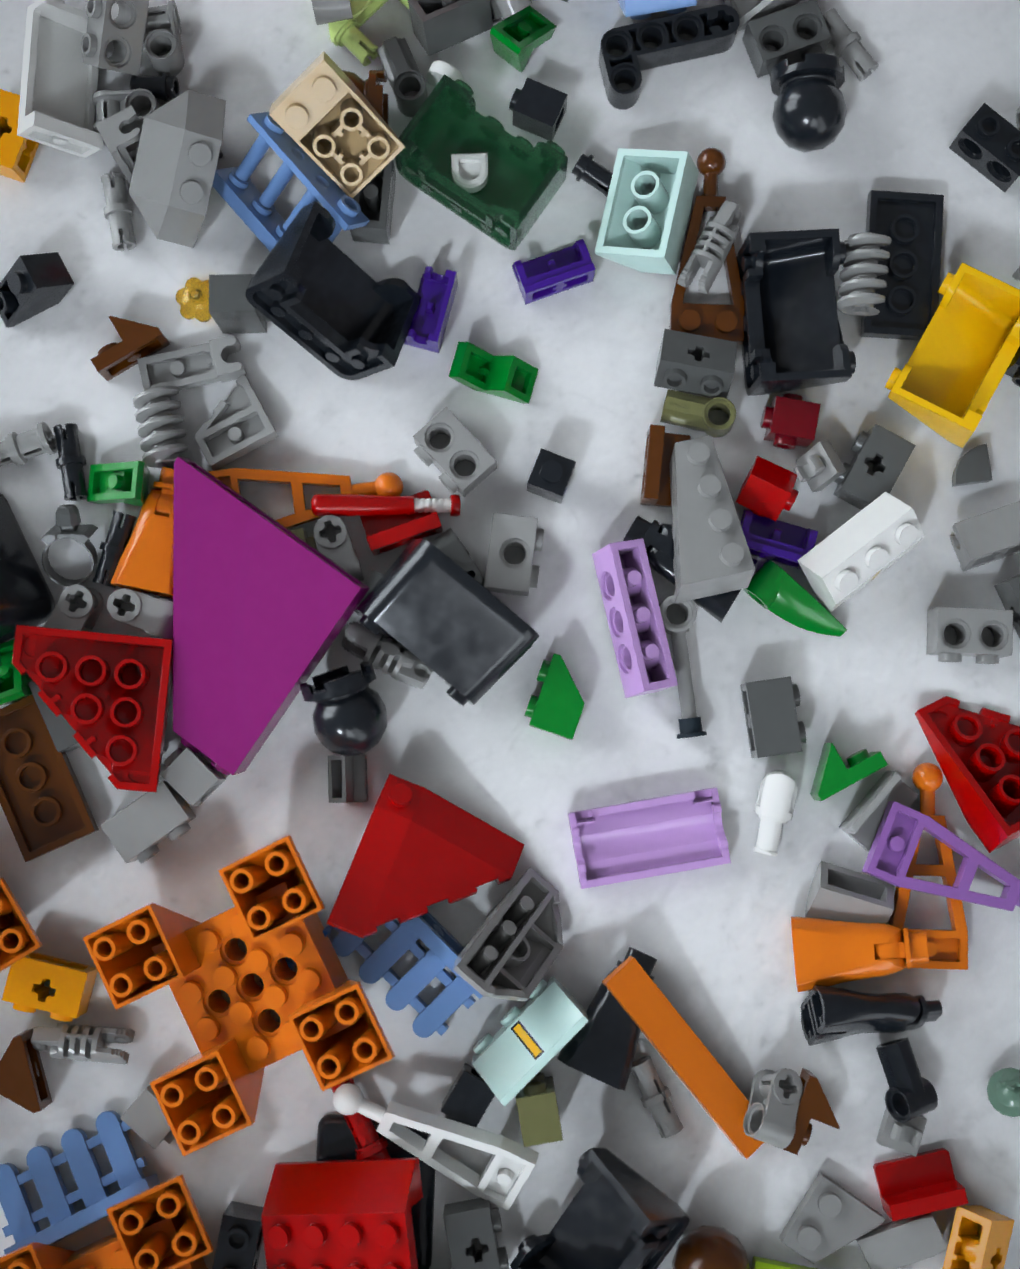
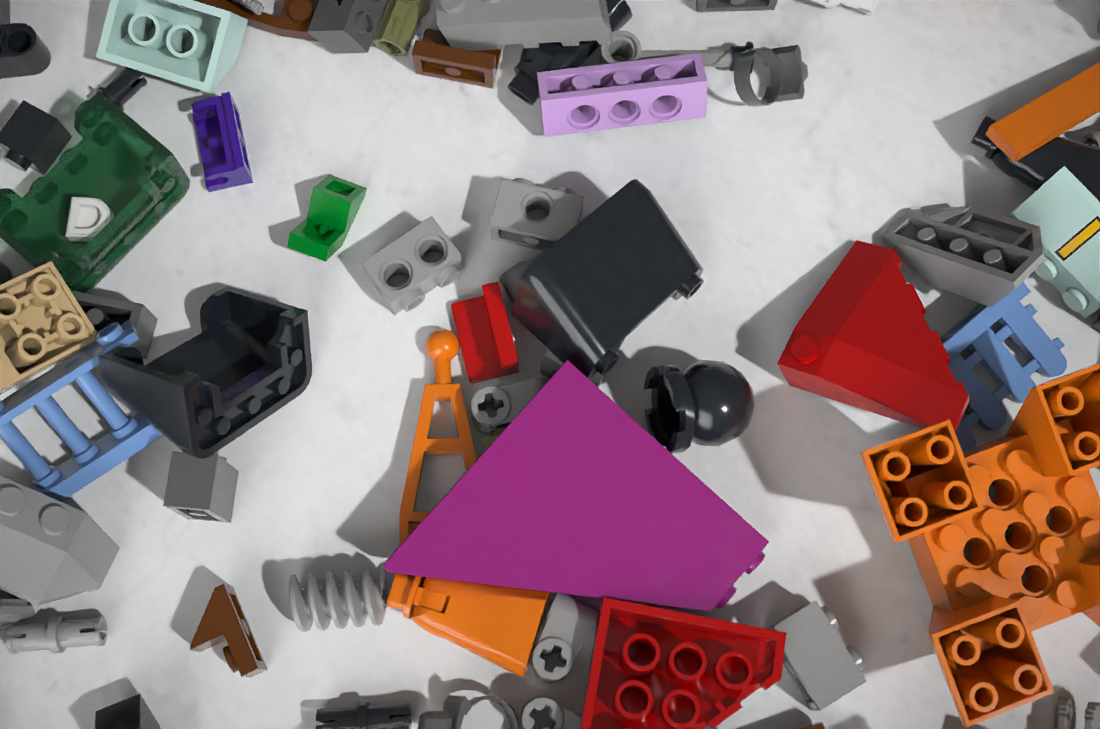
camera: 85 degrees left, 10 degrees down
(113, 547) = (479, 672): black pin -> none
(119, 483) = (399, 657): green slope -> none
(191, 775) = (763, 597): light grey brick -> none
(192, 306) = (194, 550): clear yellow plant -> none
(192, 365) = (266, 559): light grey plate -> none
(235, 427) = (348, 512): light grey wing -> none
(347, 778) = (777, 419): dark grey piece -> none
(374, 505) = (463, 361): red piece -> none
(385, 655) = (645, 351): light grey hinge -> none
(433, 310) = (242, 270): dark purple hinge -> none
(551, 476) = (454, 165): black brick -> none
(559, 701) = (702, 185): green slope -> none
(648, 838) = (856, 114): lavender gear -> none
(671, 770) = (786, 75): none -> dark grey piece

